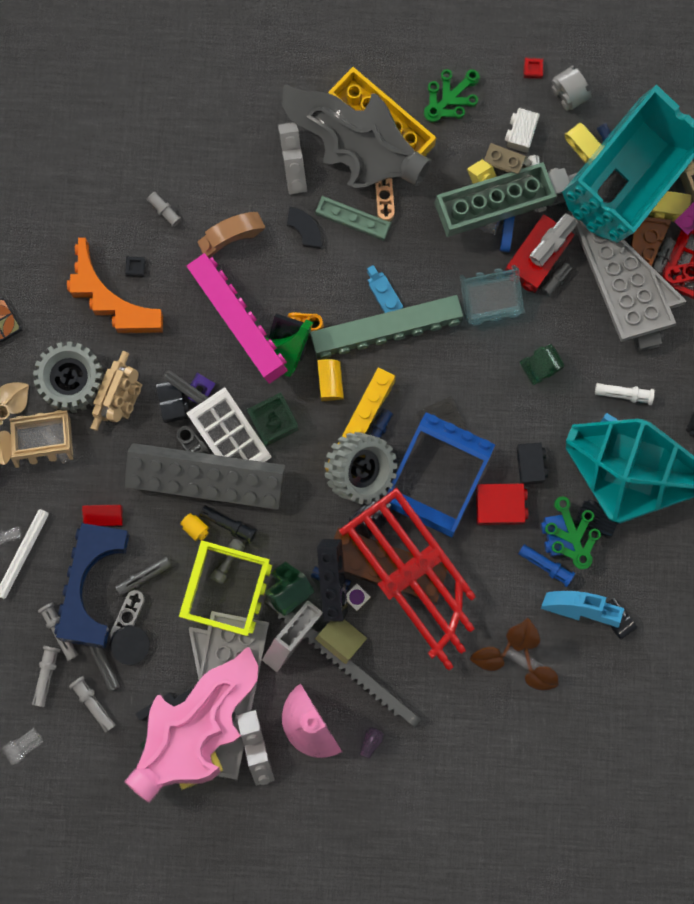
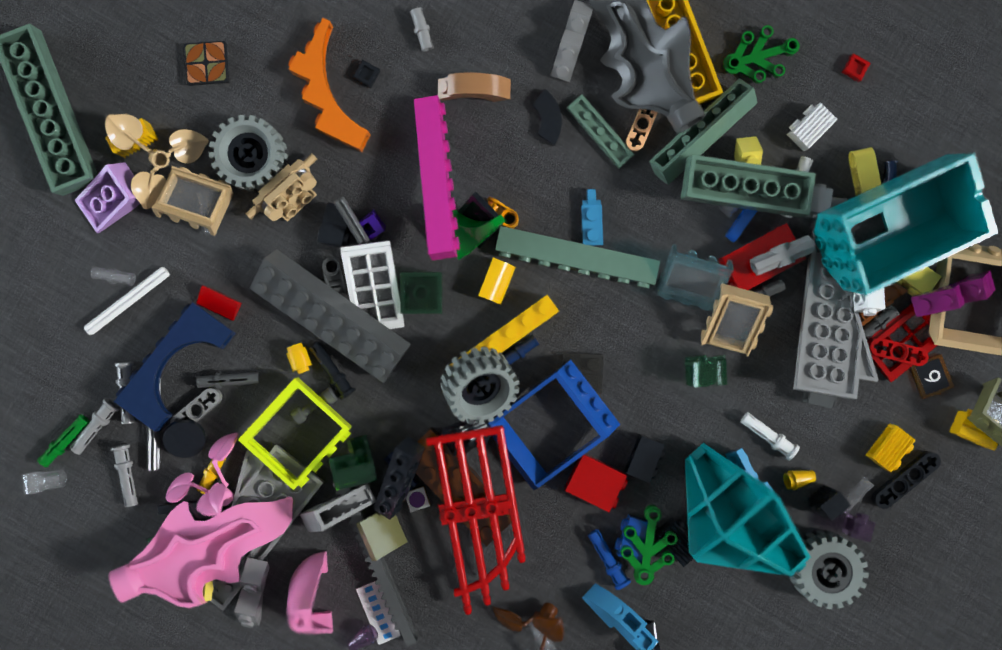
camera: 35 degrees right, 10 degrees up
(24, 701) = (57, 448): none -> green pin
(167, 665) = (209, 476): none -> yellow pin
(183, 676) = (219, 495): none -> bright pink plant
(373, 714) = (377, 612): none -> white sticker
(437, 180) = (696, 140): none -> sand green brick
(506, 159) = (780, 151): dark tan panel -> none
(545, 310) = (737, 319): none -> tan window
(571, 88) = (882, 108): light grey brick -> none
(643, 240) = (869, 304): none -> white brick
(668, 416) = (796, 479): none -> yellow cone

